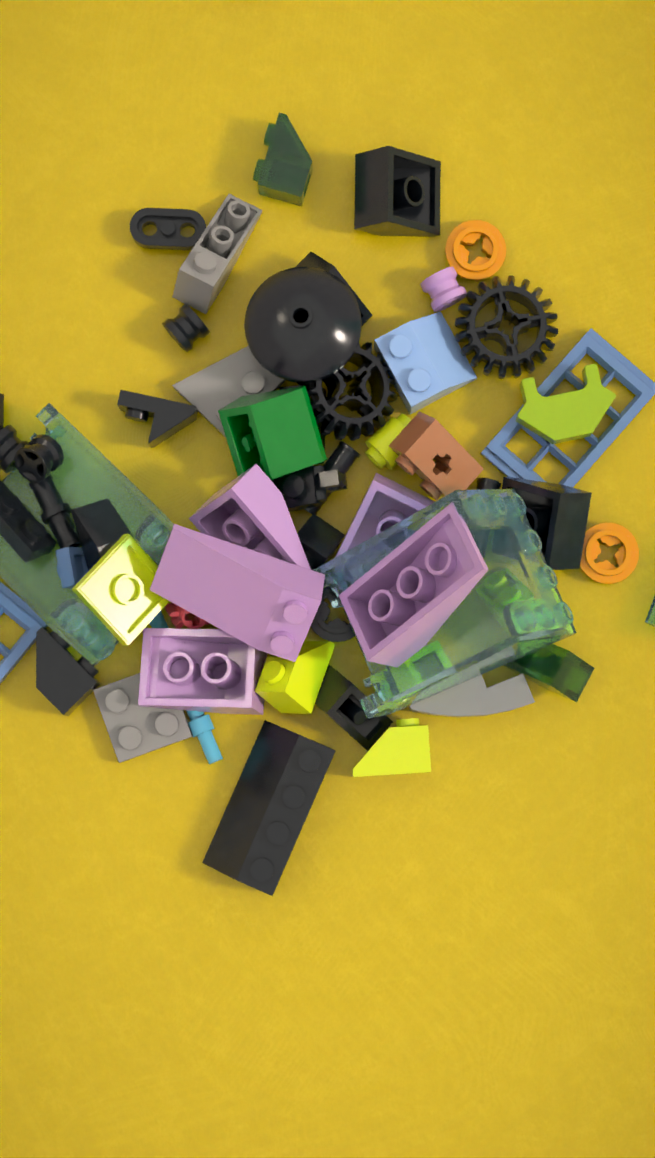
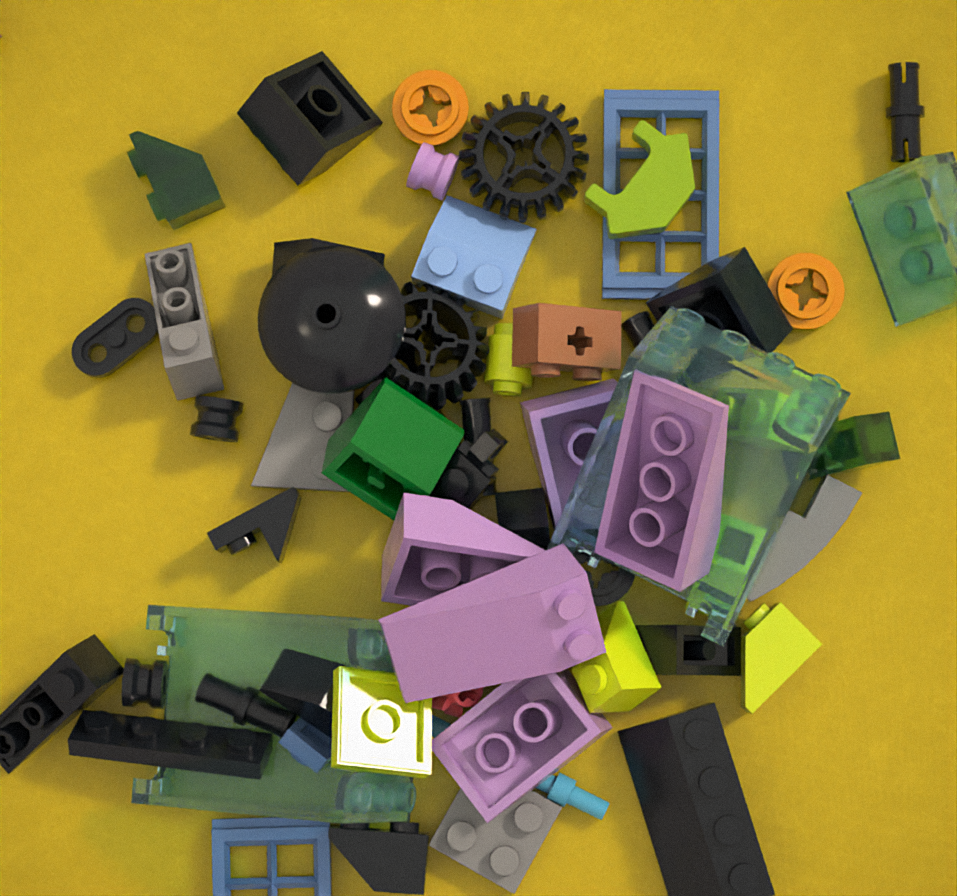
camera: 40 degrees left, 0 degrees up
(39, 458) = (185, 667): black wheel -> none

